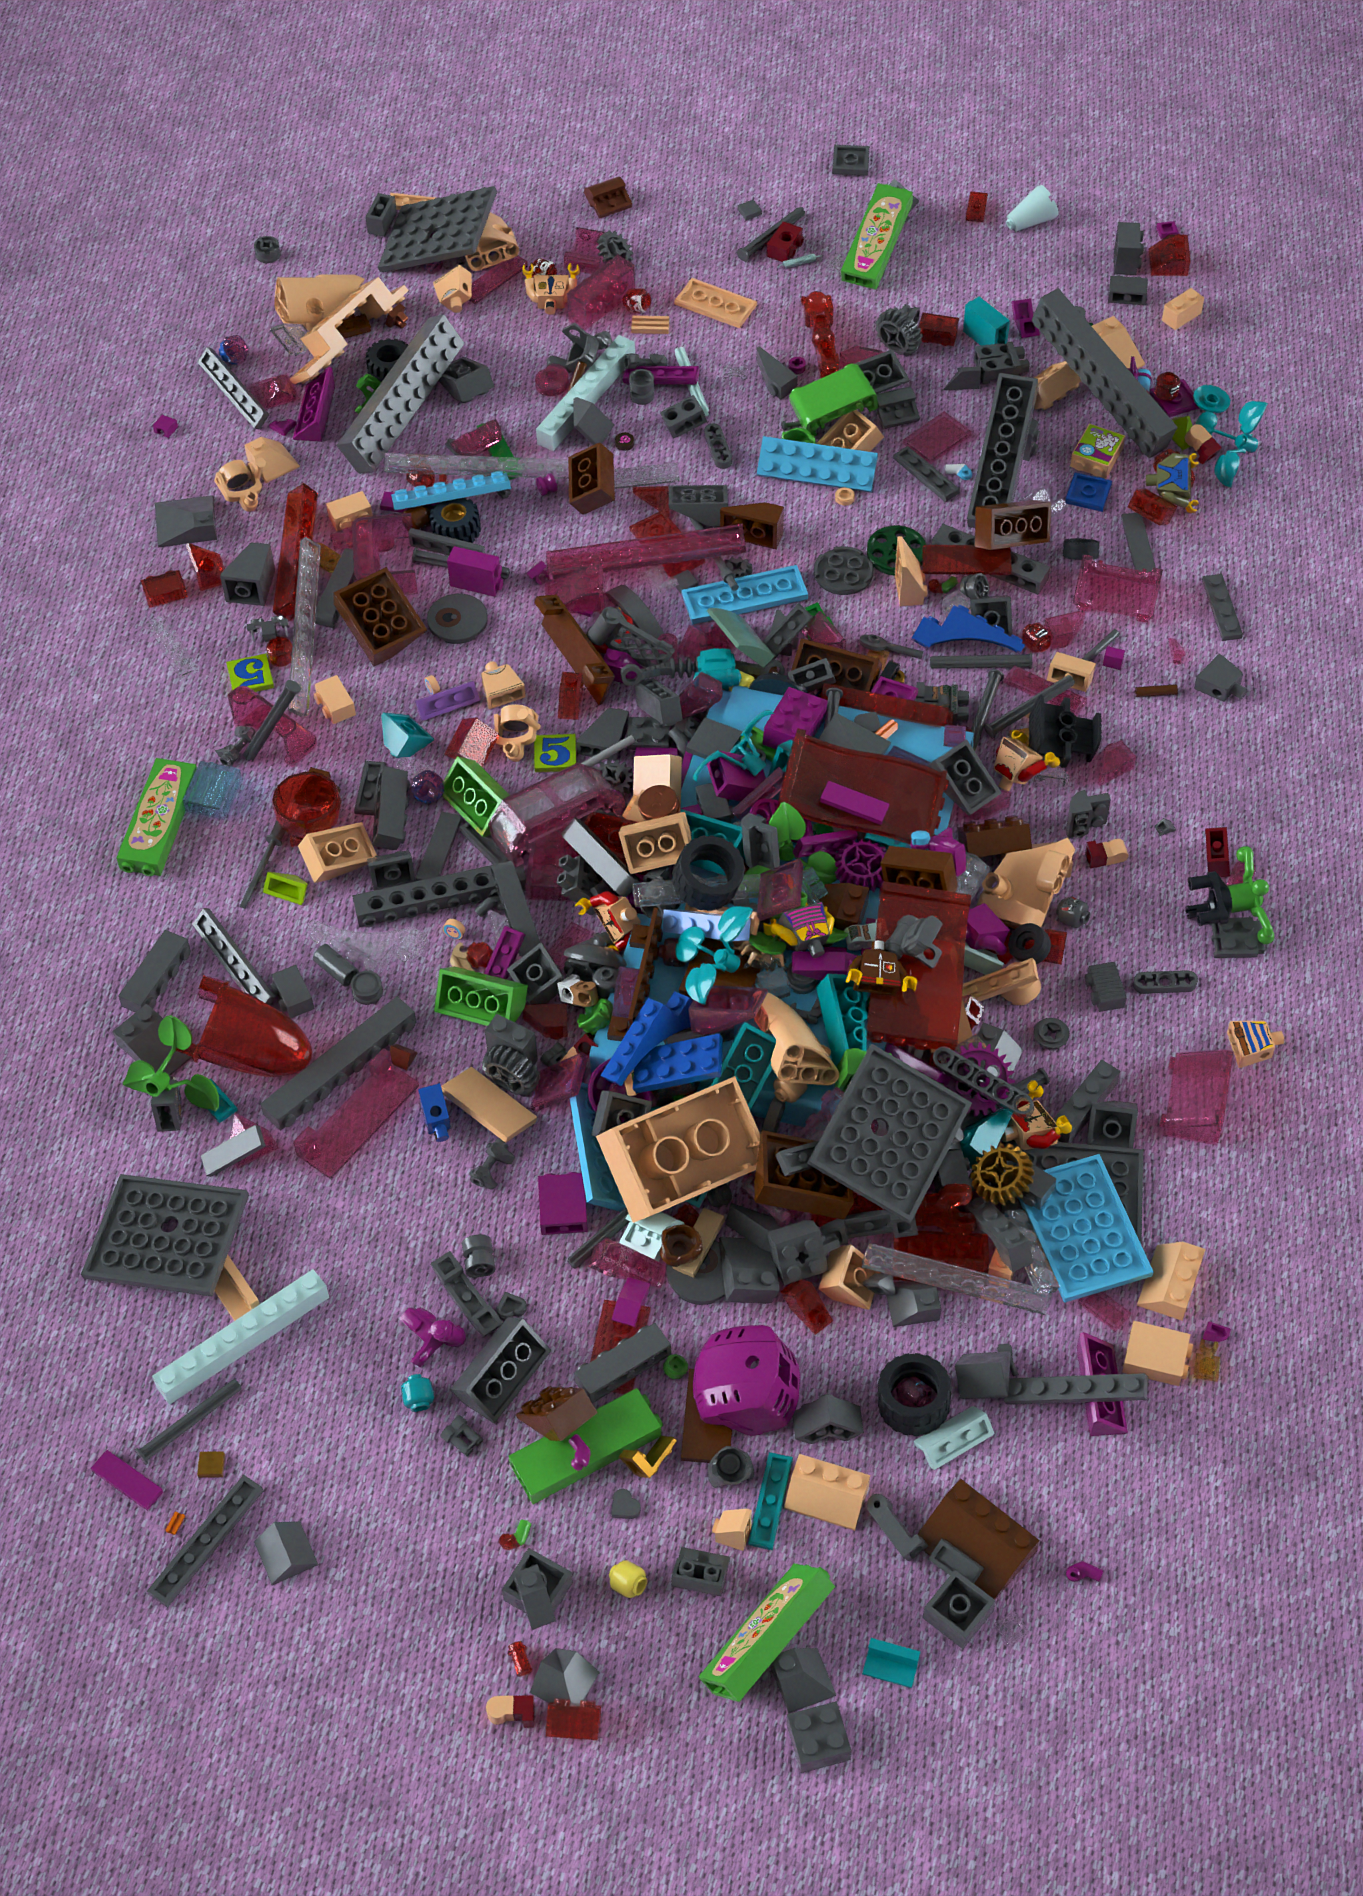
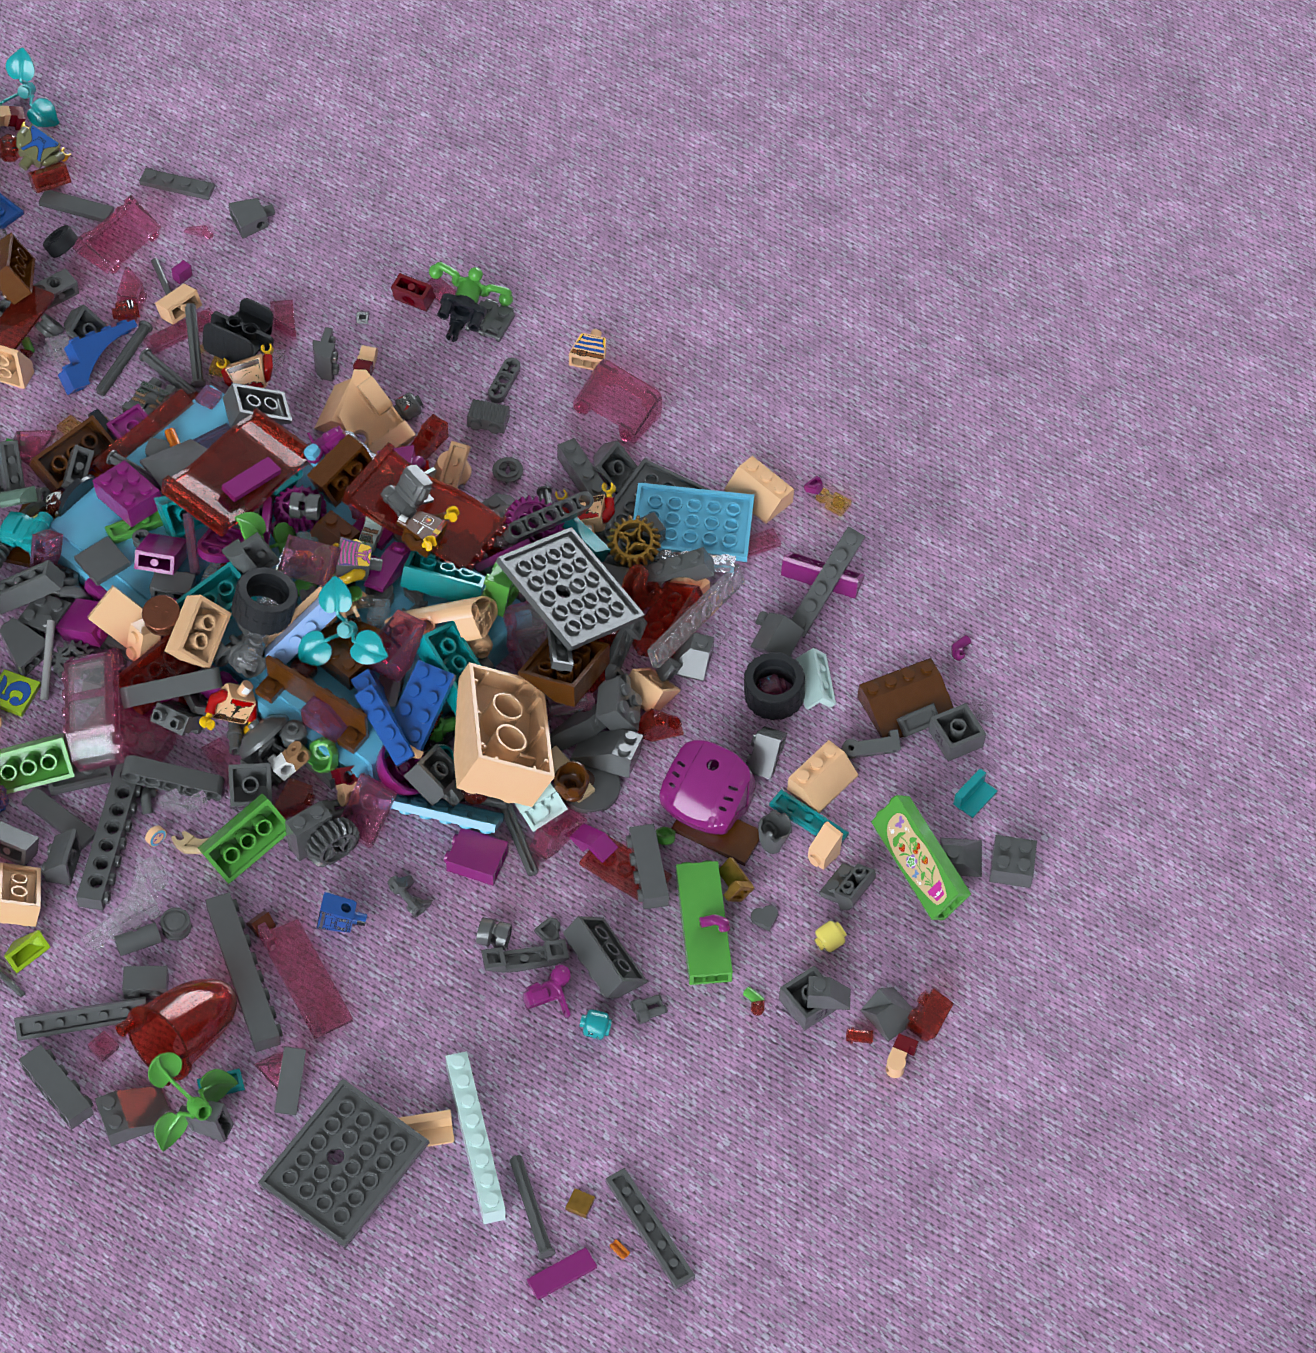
camera: 70 degrees left, 0 degrees up
(285, 1551) = (688, 1173): dark grey slope -> none
(479, 954) = (196, 825): clear red gear -> none
(488, 1104) = (351, 873): light nougat tile -> none
(505, 952) = (211, 803): magenta tile -> none
(557, 1412) = (670, 925): reddish brown slope -> none
(751, 761) = (158, 533): teal plant -> none
(854, 862) = (312, 506): none -> dark grey wheel
(877, 643) = (57, 419): dark grey piece -> none
(995, 836) = (314, 415): reddish brown brick -> none
(1028, 932) = (425, 431): black tyre -> none
(1157, 1353) = (814, 526): light nougat brick -> none
(1160, 690) = (230, 261): reddish brown piece -> none

